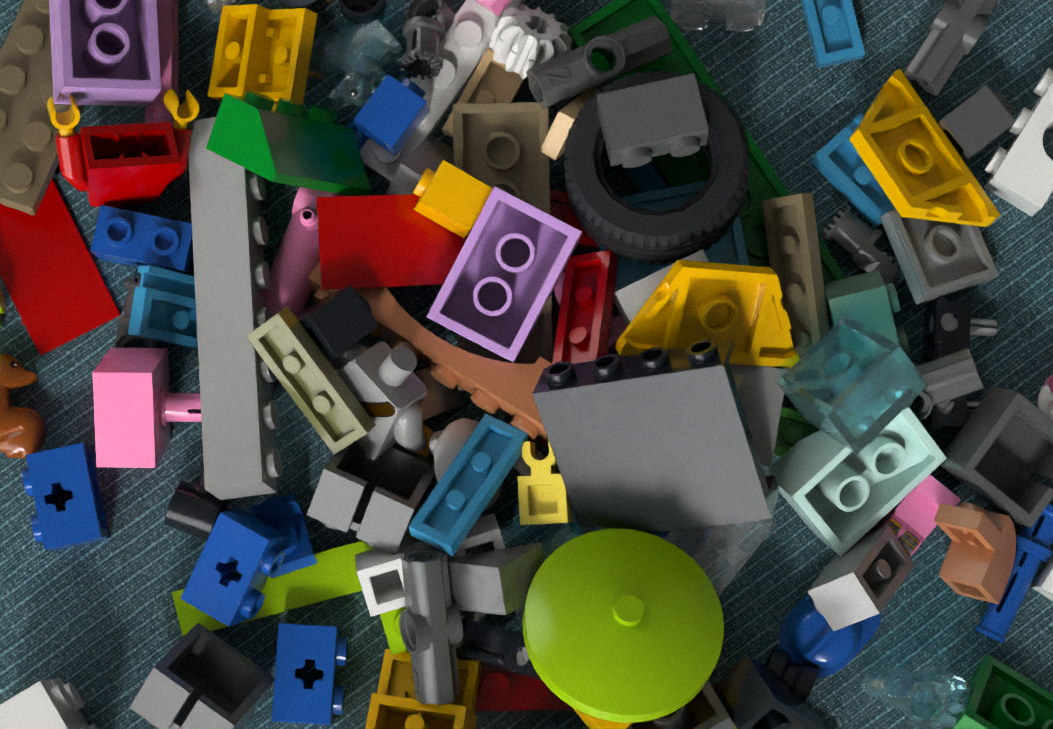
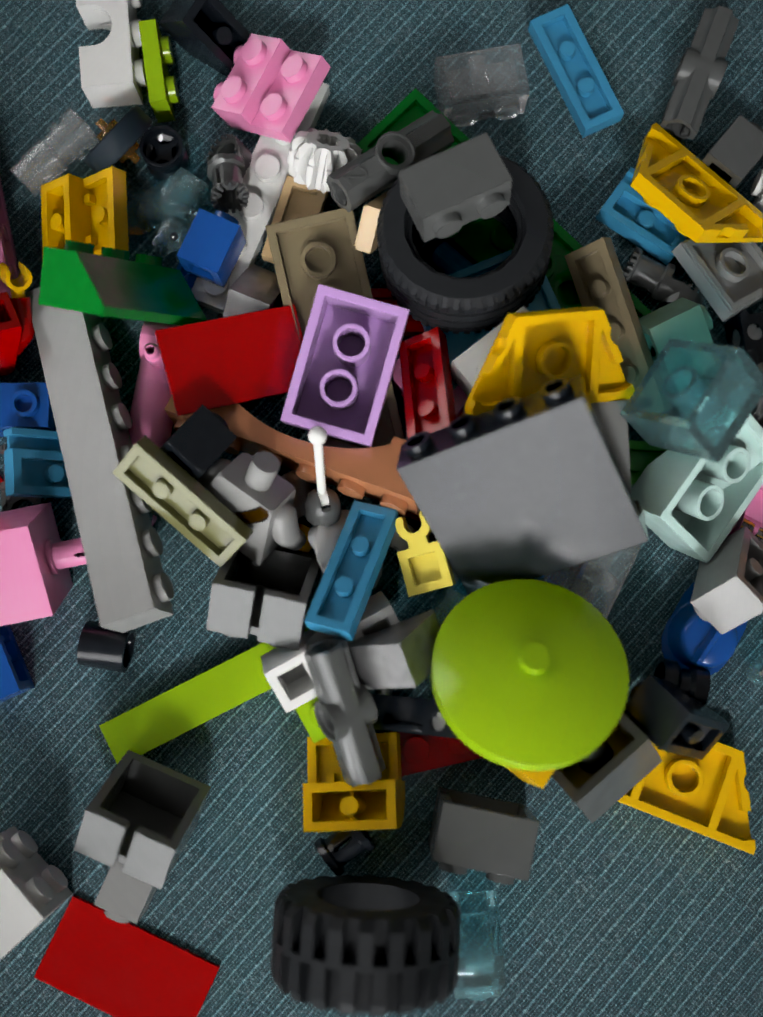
camera: 15 degrees left, 0 degrees up
(216, 580) = (149, 692): blue brick -> none
(288, 517) = (191, 651): blue bracket -> none
(292, 697) = (230, 799): blue brick -> none
(451, 198) = (280, 307): yellow brick -> none
(454, 401) = (322, 495): none -> hinge

